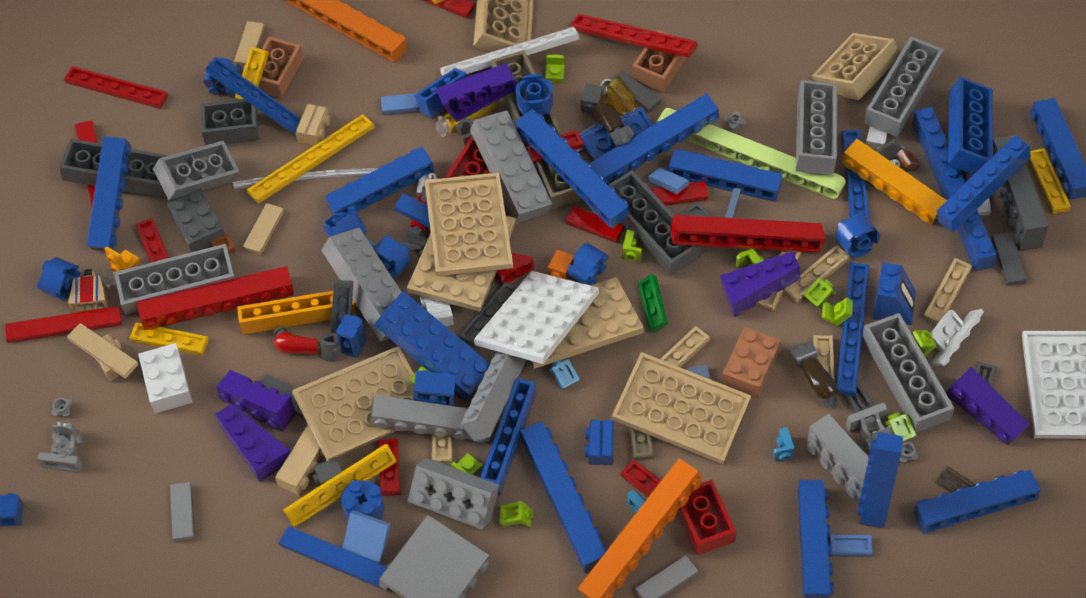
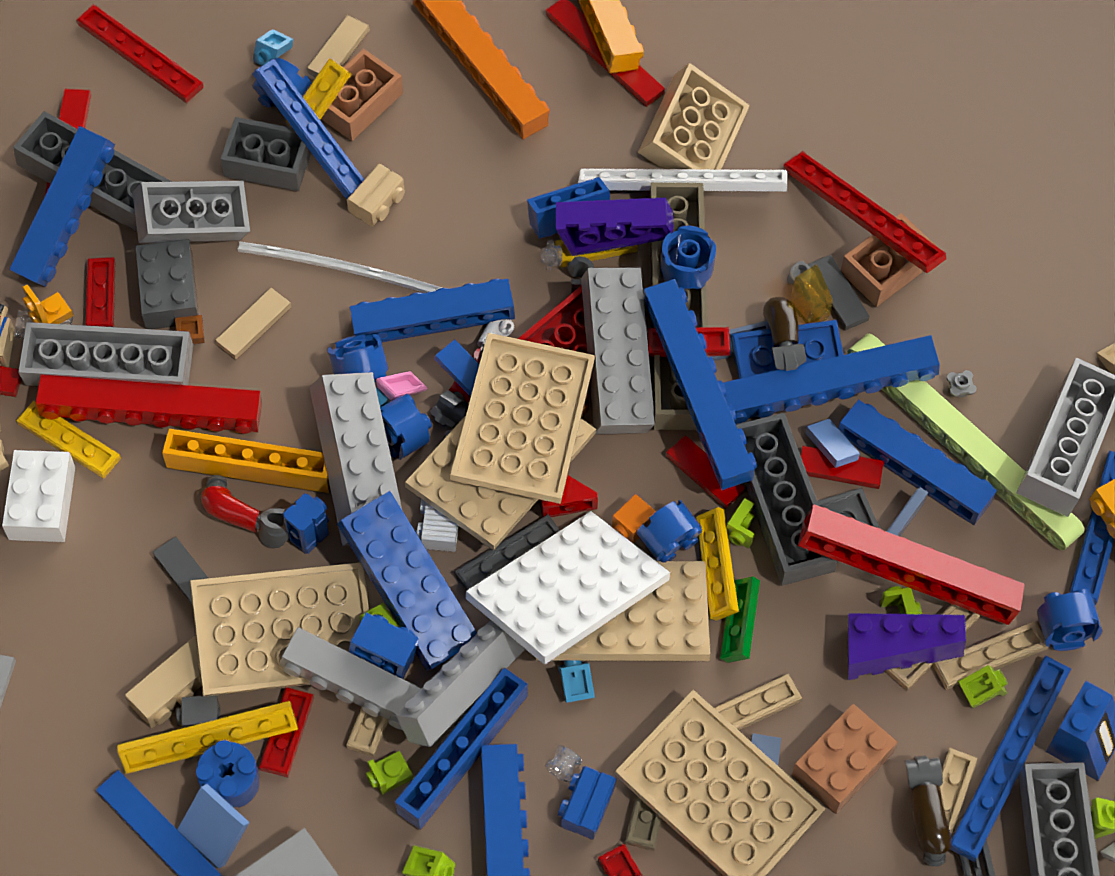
camera: 15 degrees right, 5 degrees up
(203, 56) = (271, 46): none -> dark azure bracket
(254, 444) = (118, 639): dark purple wedge -> none
(257, 400) = (144, 568): dark purple wedge -> none
(310, 159) = (355, 243): yellow tile -> none
(341, 302) = (308, 472): dark grey tile -> none
(377, 233) = (400, 384): none -> bright pink tile
(399, 104) = (504, 202): medium blue tile -> none
(453, 493) = (353, 807): light grey brick -> none
(555, 68) = (738, 222): lime bracket -> none
(576, 424) = (563, 763): none -> clear wheel
(591, 97) = (771, 282): dark grey brick -> none
(628, 279) = (717, 559): none -> yellow tile
(838, 313) = (997, 727): lime bracket -> none

